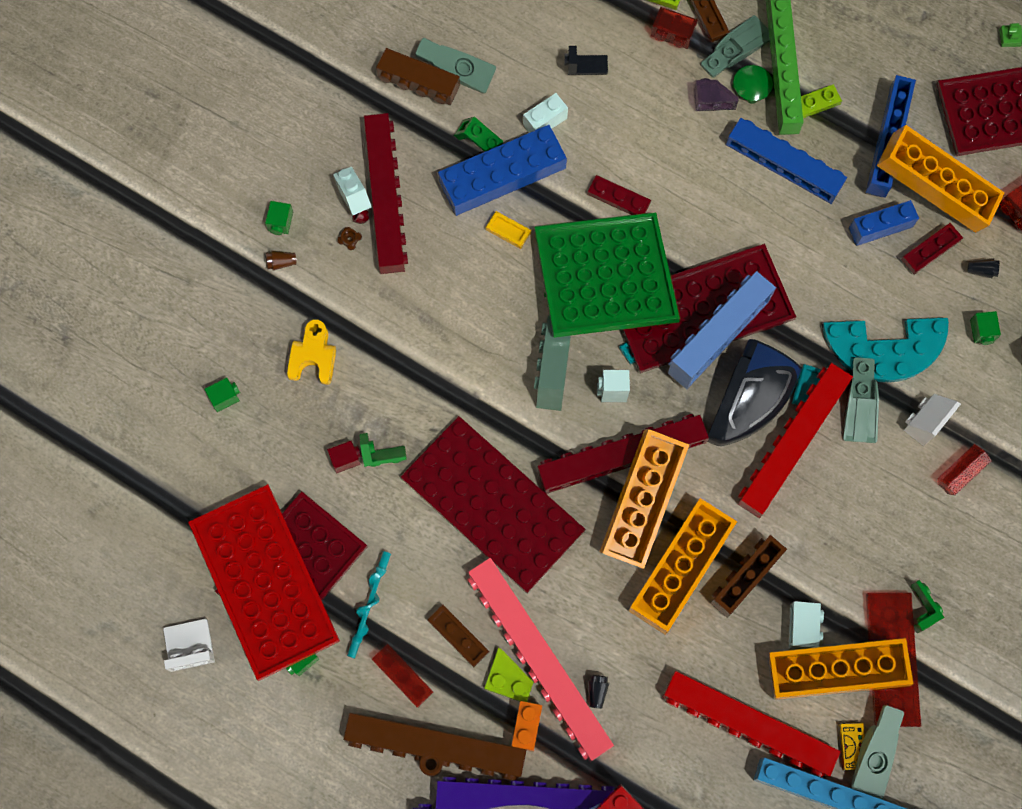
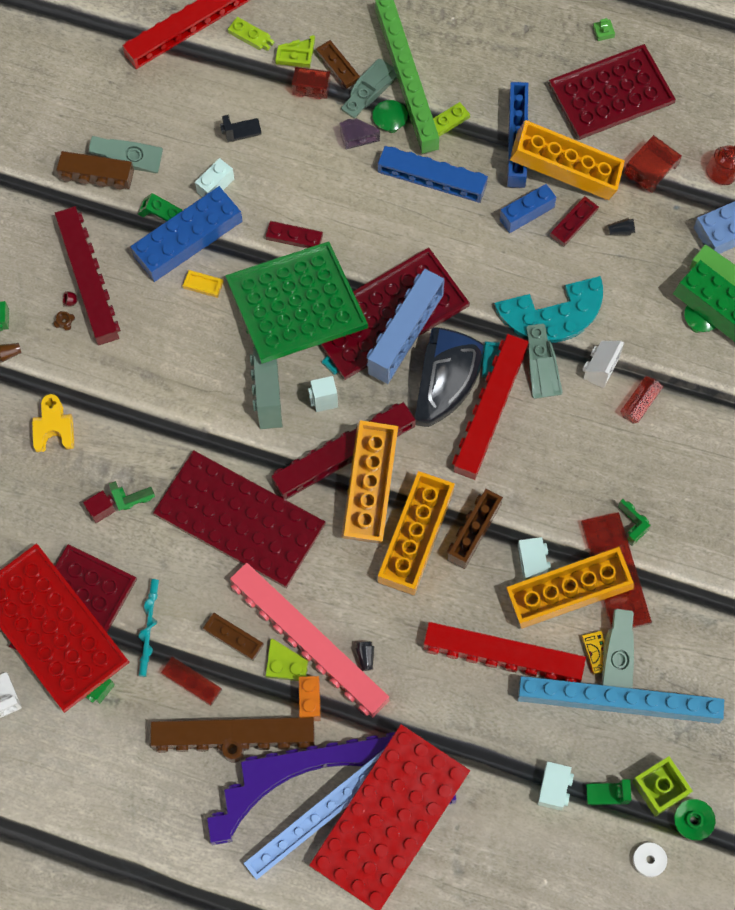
camera: 10 degrees left, 5 degrees down
(352, 190) = (57, 278): light aqua brick -> none
(985, 327) = (634, 277): green brick -> none

